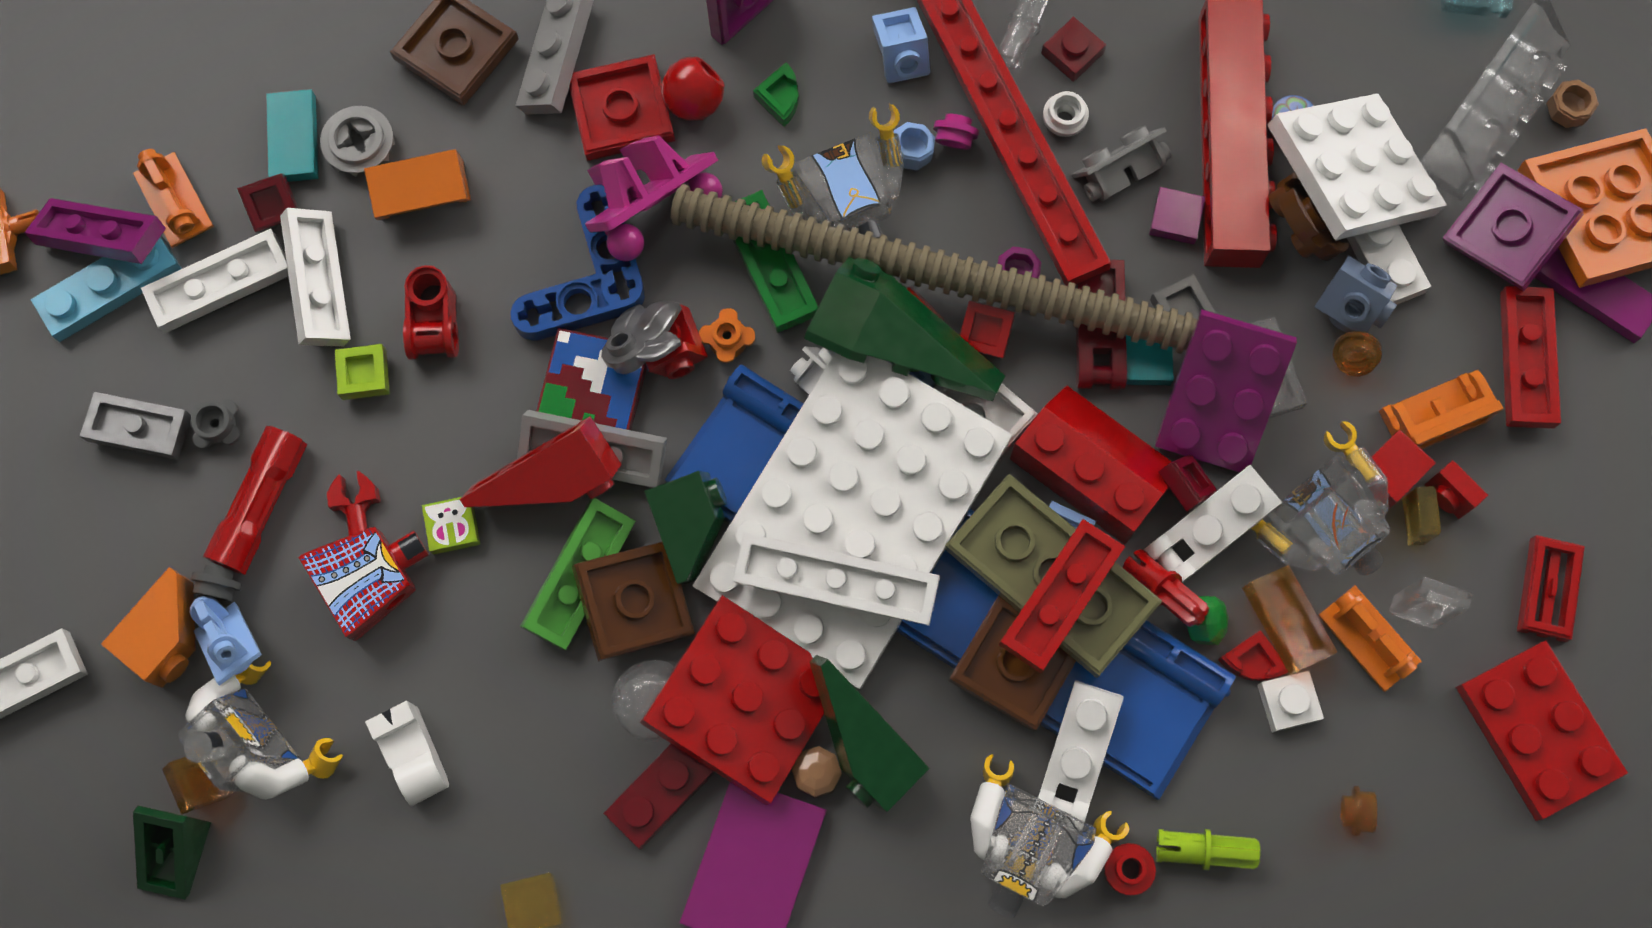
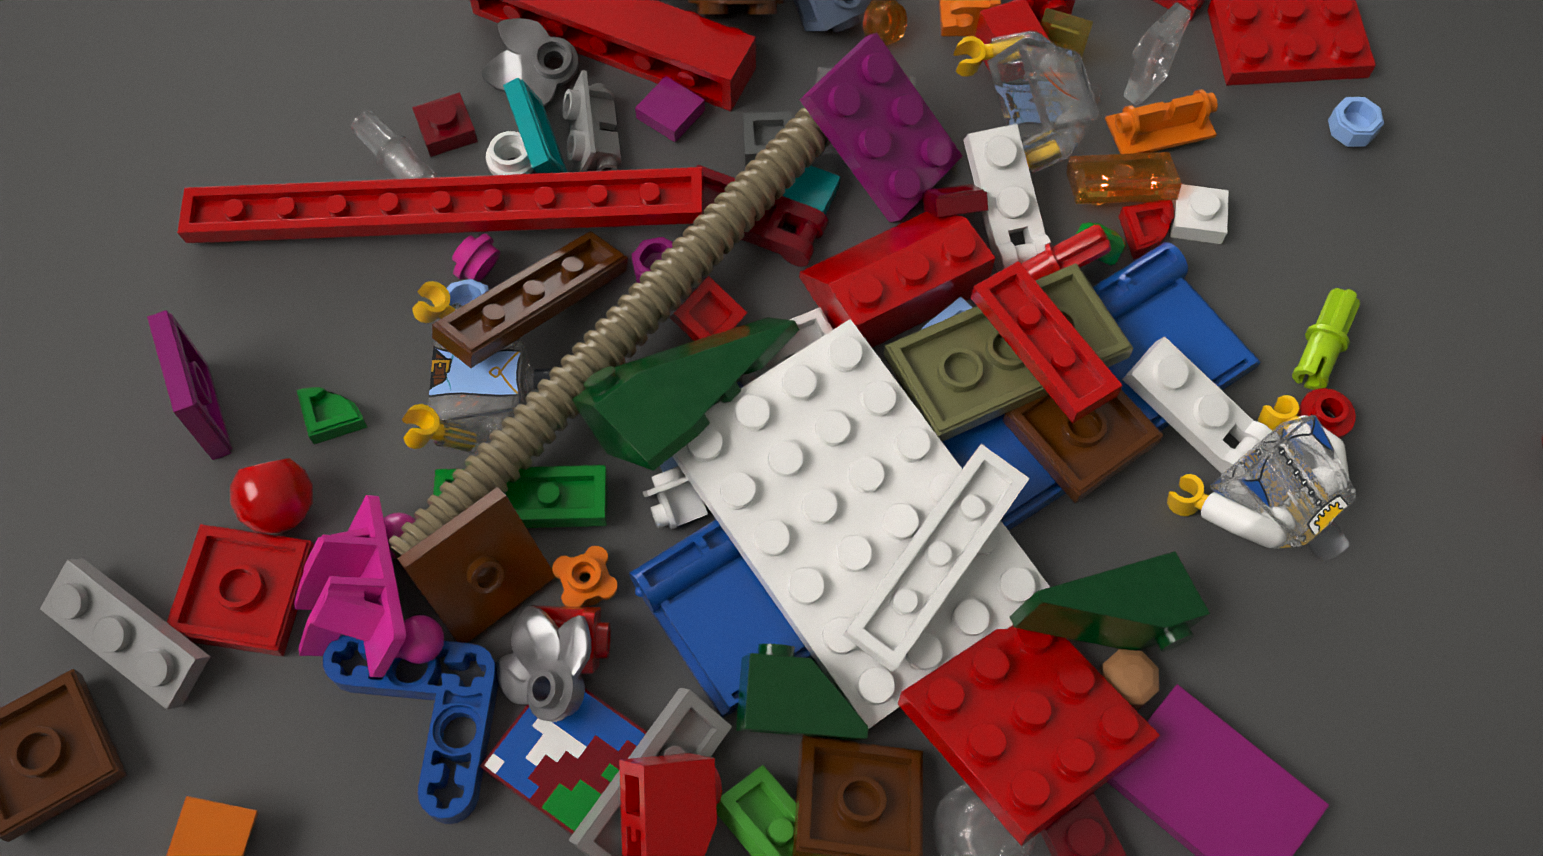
camera: 70 degrees left, 10 degrees down
(693, 255) = (477, 566): none -> reddish brown plate
(902, 44) = (346, 266): light blue bracket -> none
(933, 189) = (528, 299): none -> reddish brown tile
(1091, 121) = (534, 128): none -> teal tile
(1161, 80) = (526, 58): none -> flat silver plate
(1359, 811) = (1326, 198): clear orange plate -> none
(1465, 817) = (1355, 121): none -> light blue tile

